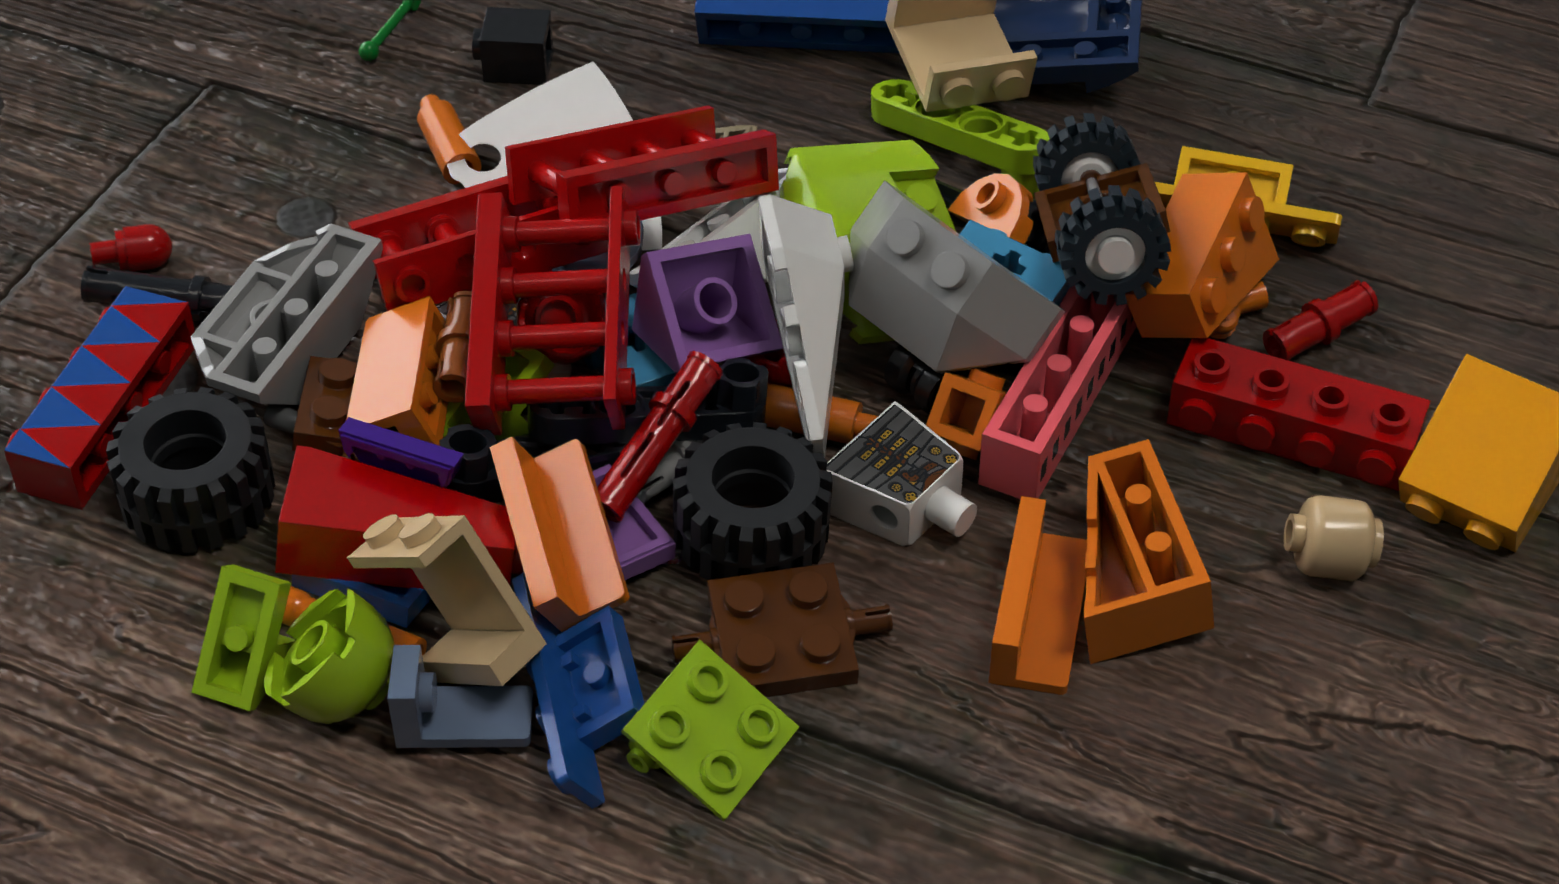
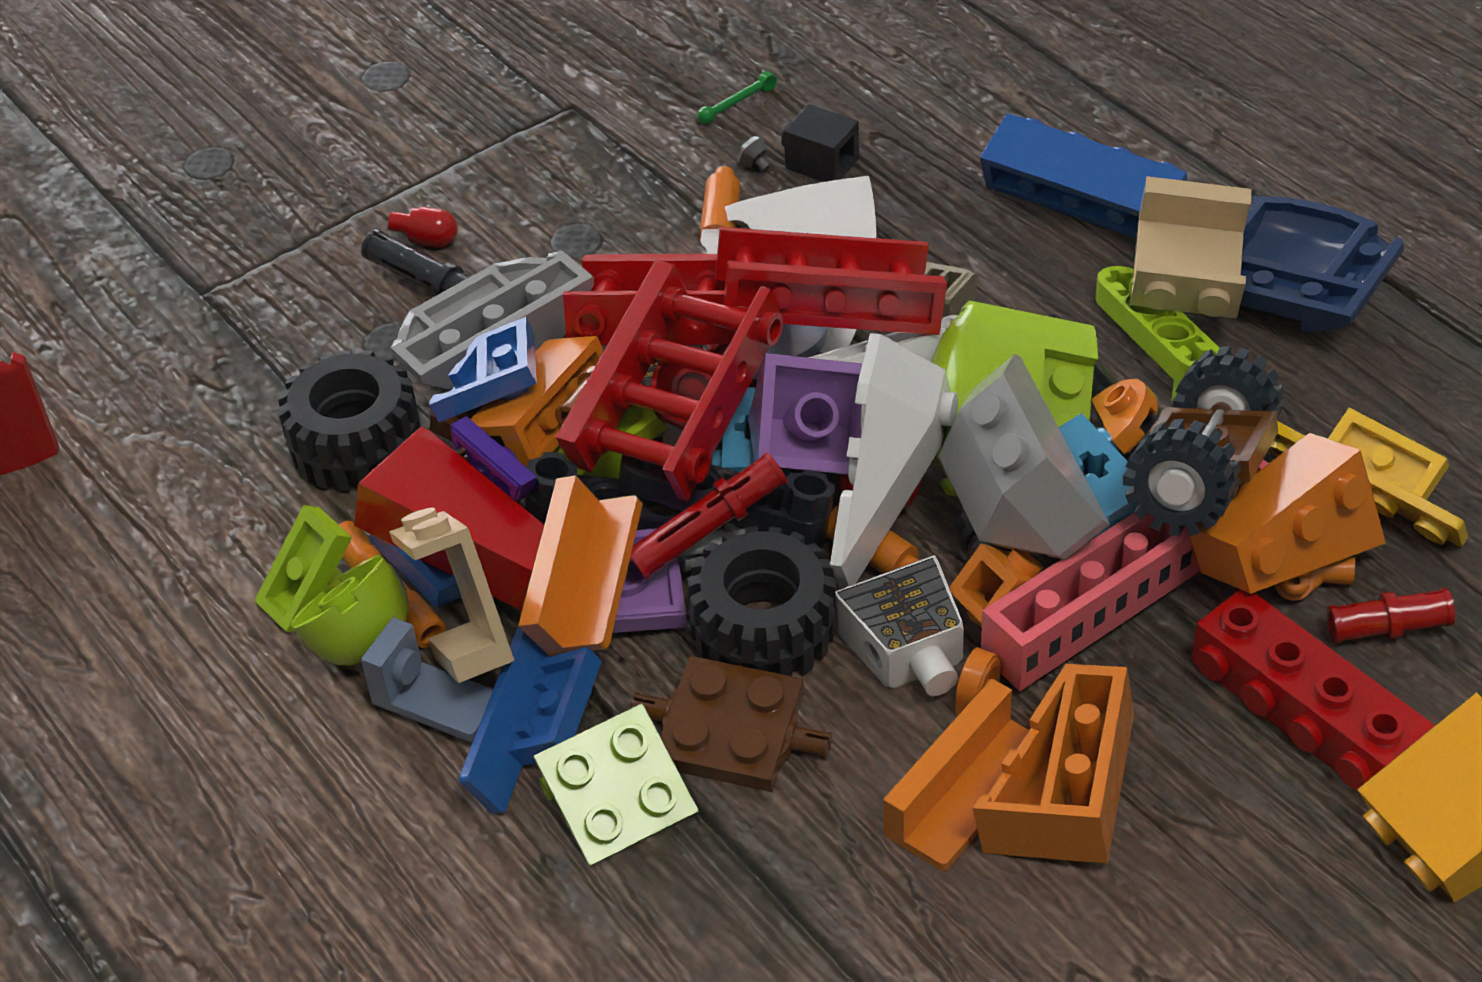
camera: 30 degrees right, 0 degrees up
(119, 366) = (352, 316): red brick -> none
(341, 362) = (494, 368): none -> blue wing
(448, 75) = (753, 154): none -> dark grey rock
(997, 510) = (976, 673): none -> orange tile
(1334, 537) = (1268, 822): tan head -> none

